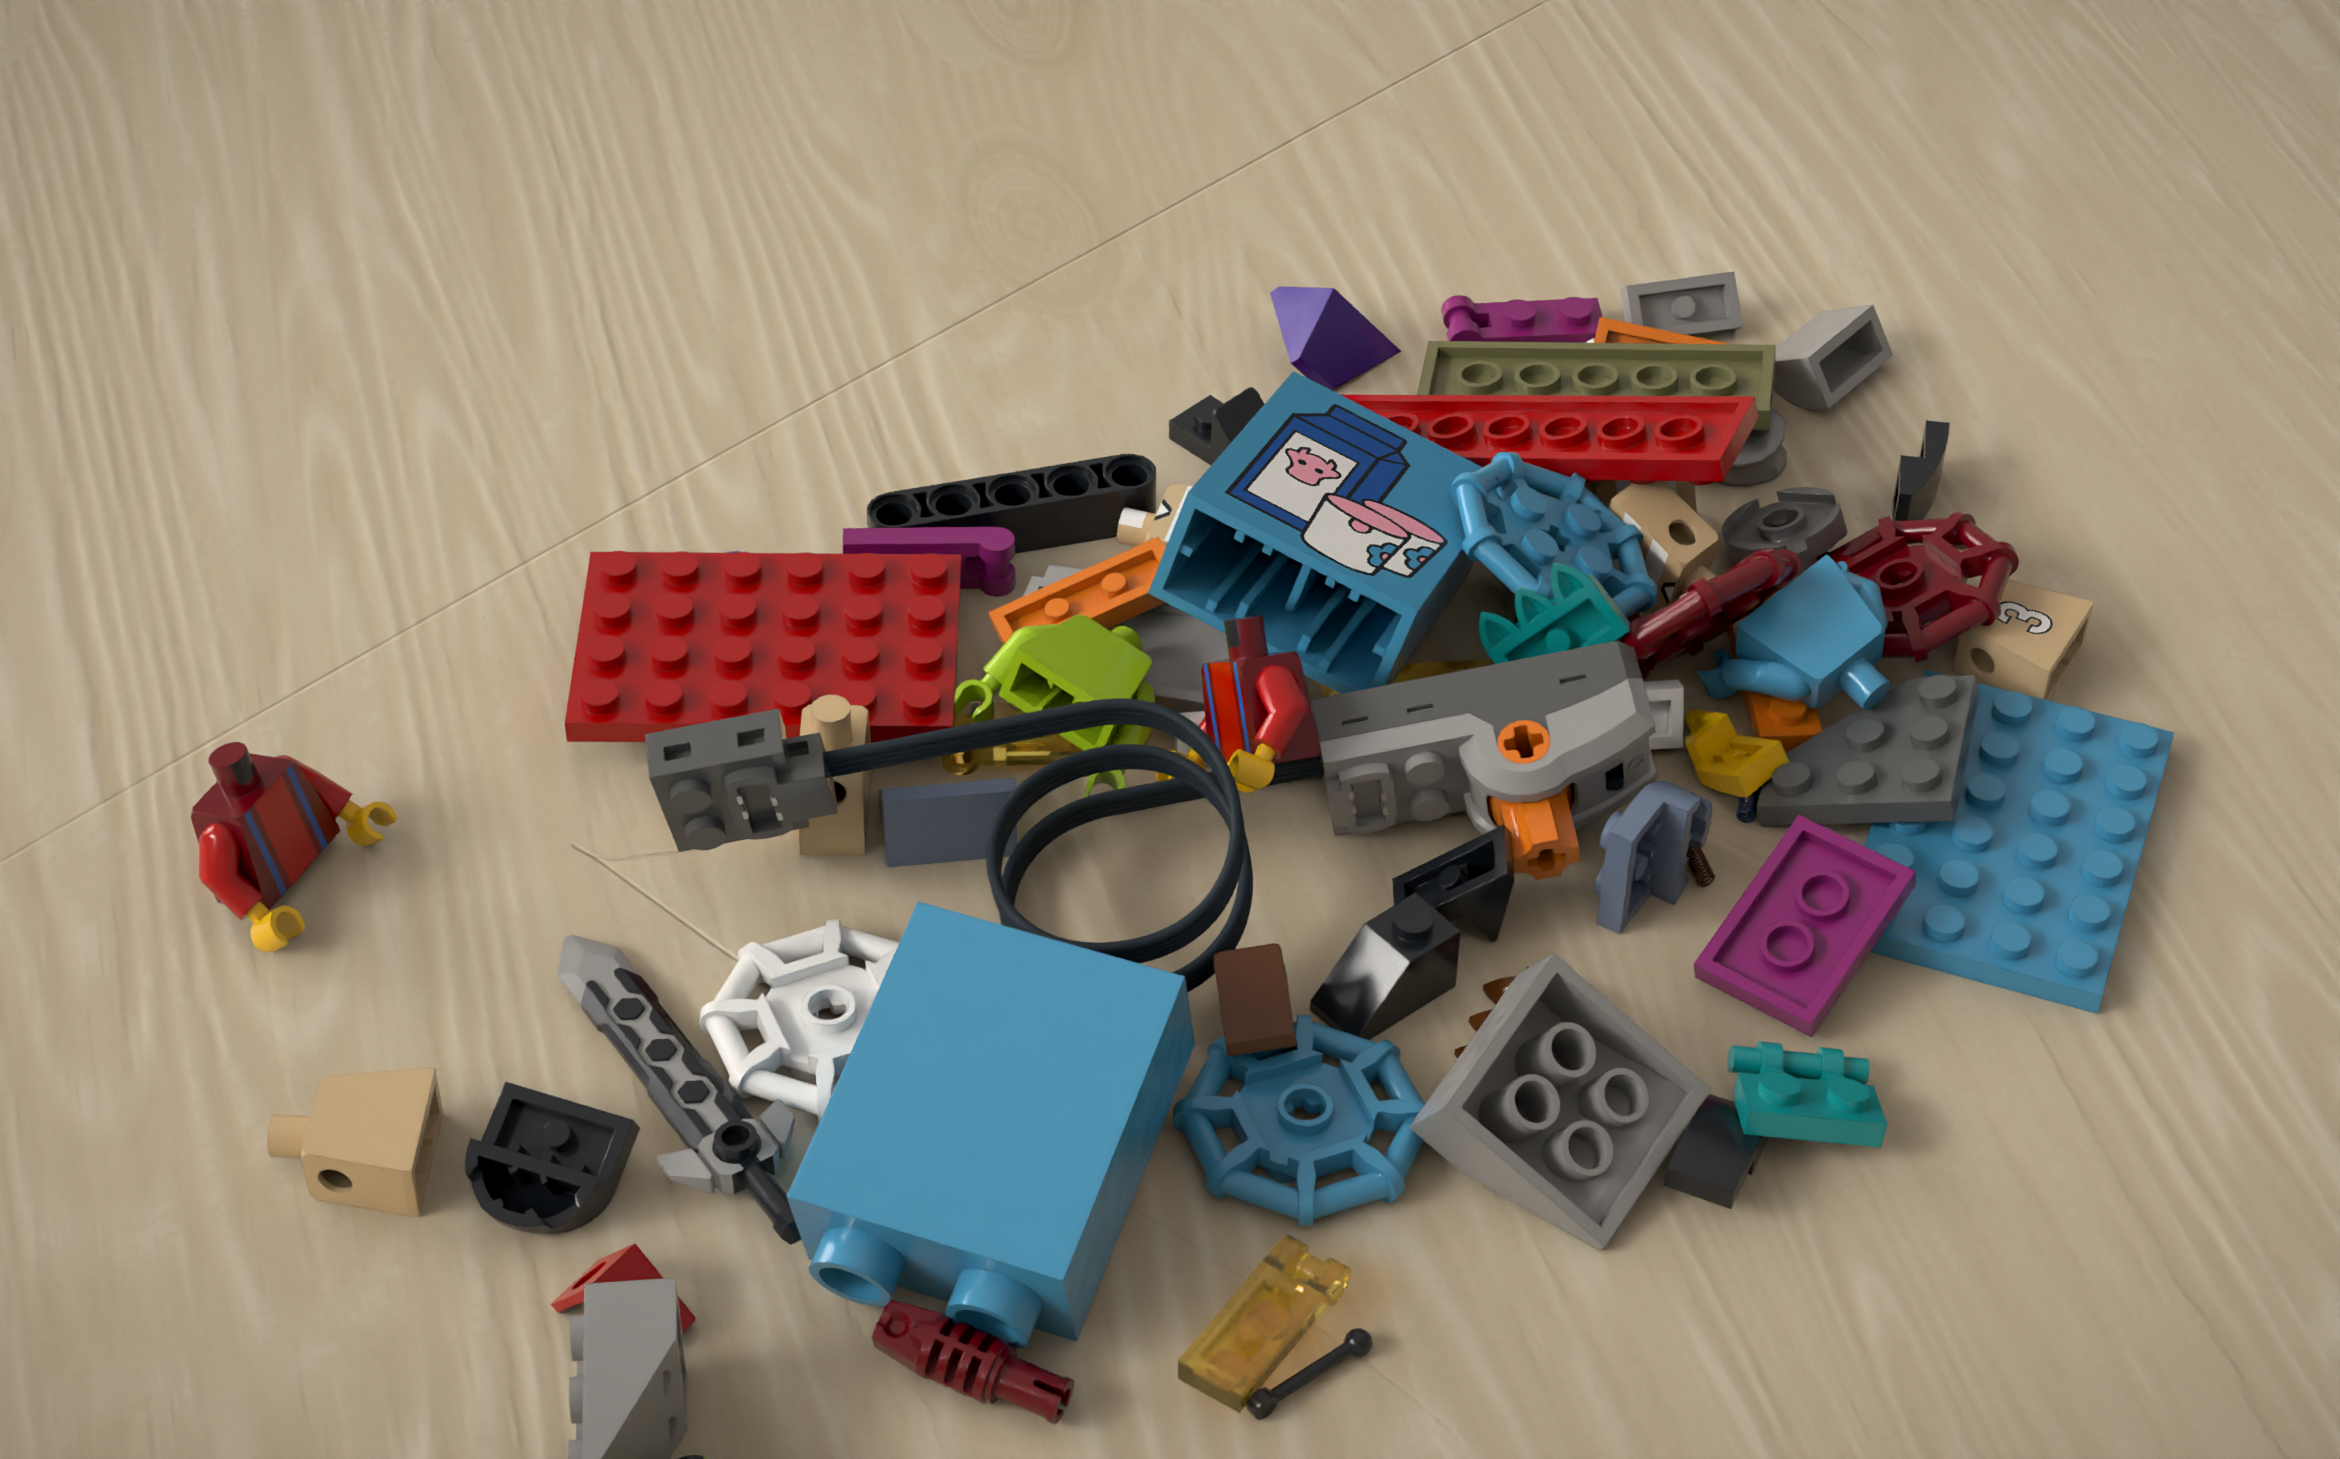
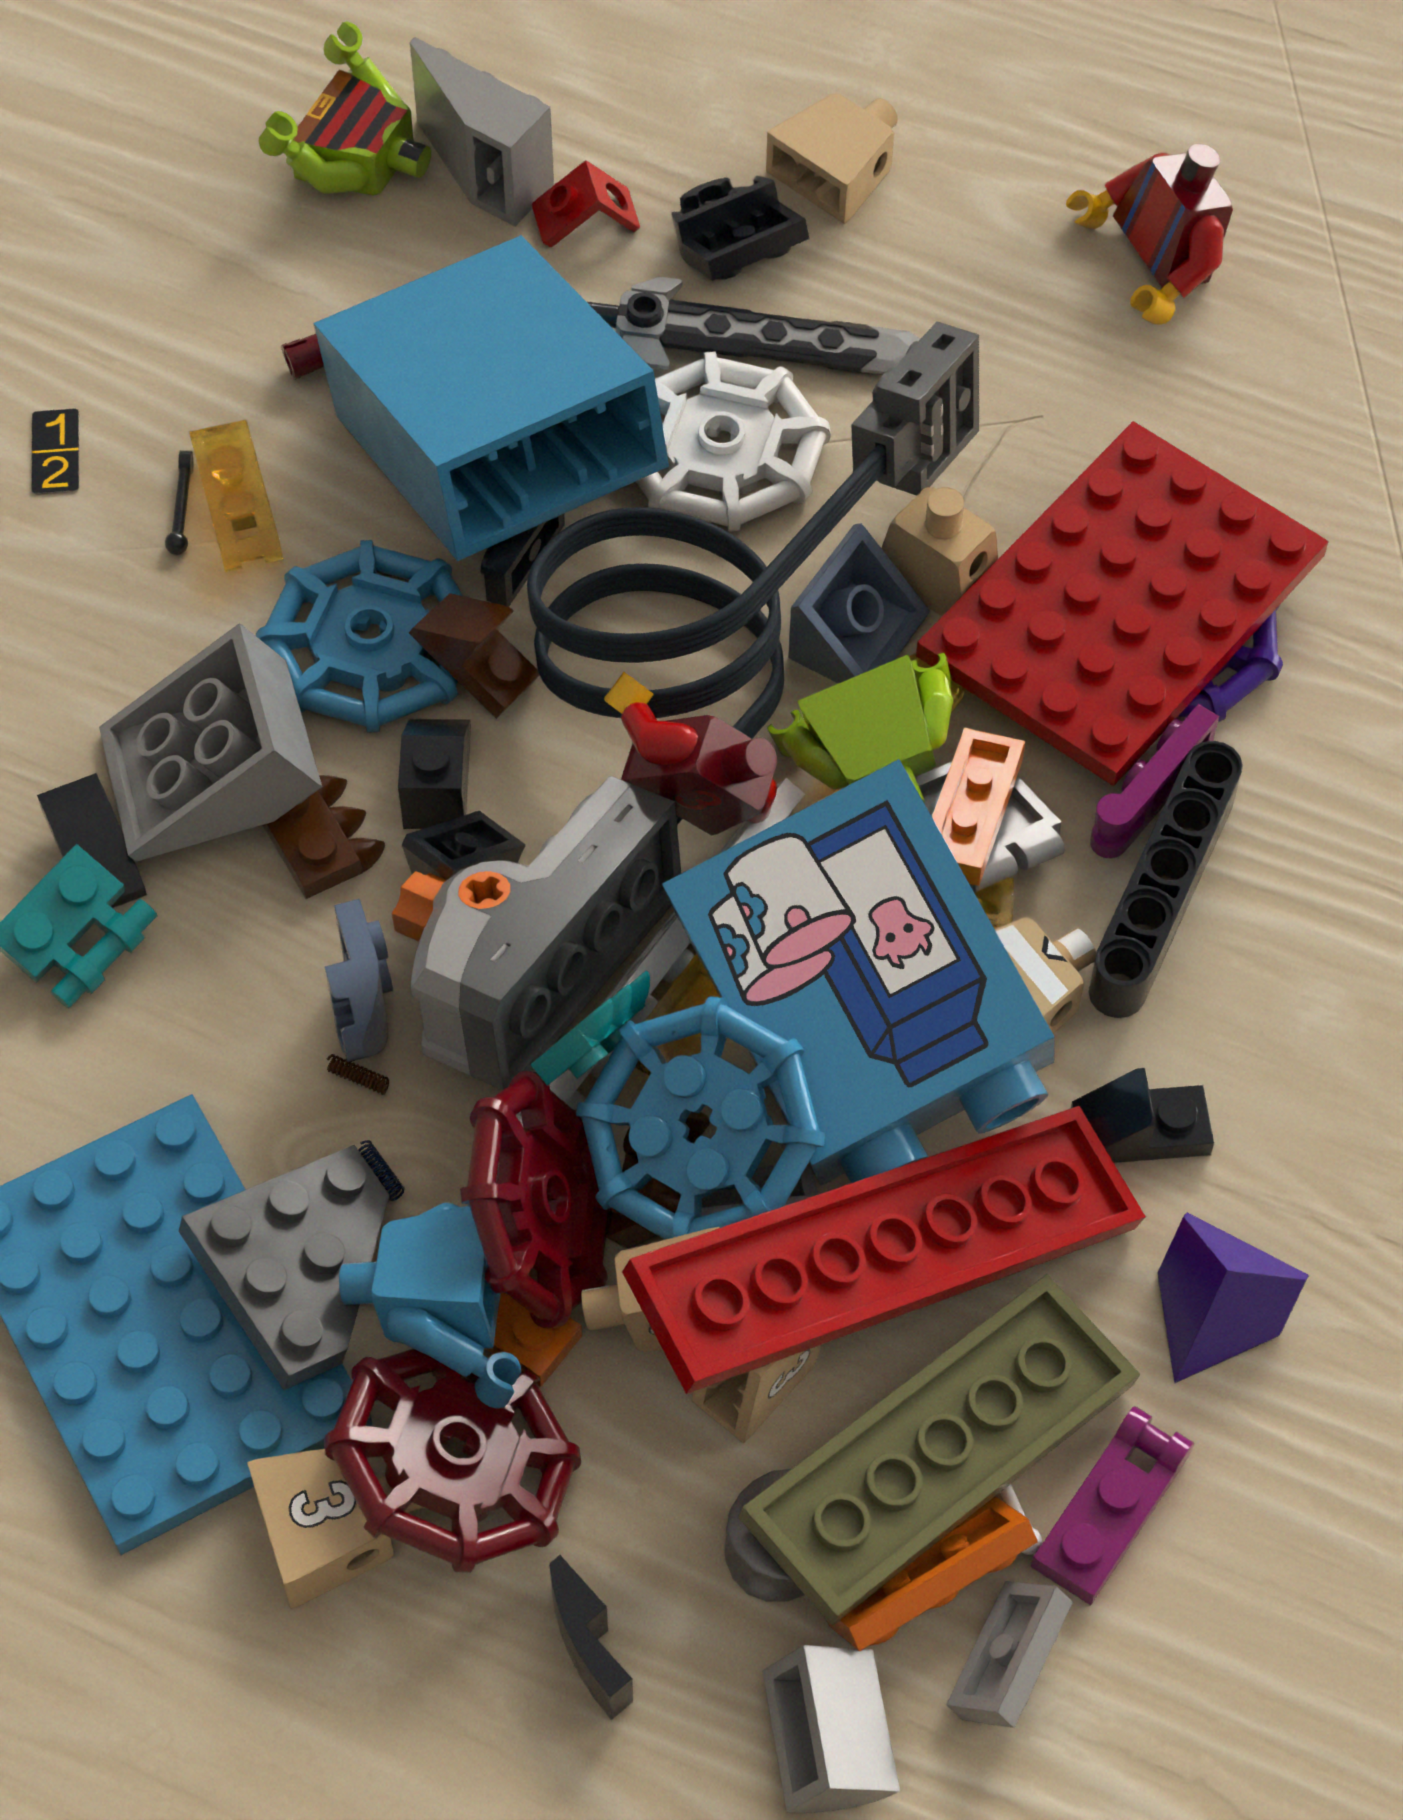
camera: 130 degrees right, 15 degrees up
(1730, 760) = (414, 1171): yellow slope -> none
(1801, 521) = (598, 1467): flat silver plate -> none
(1805, 925) = (199, 1047): magenta plate -> none

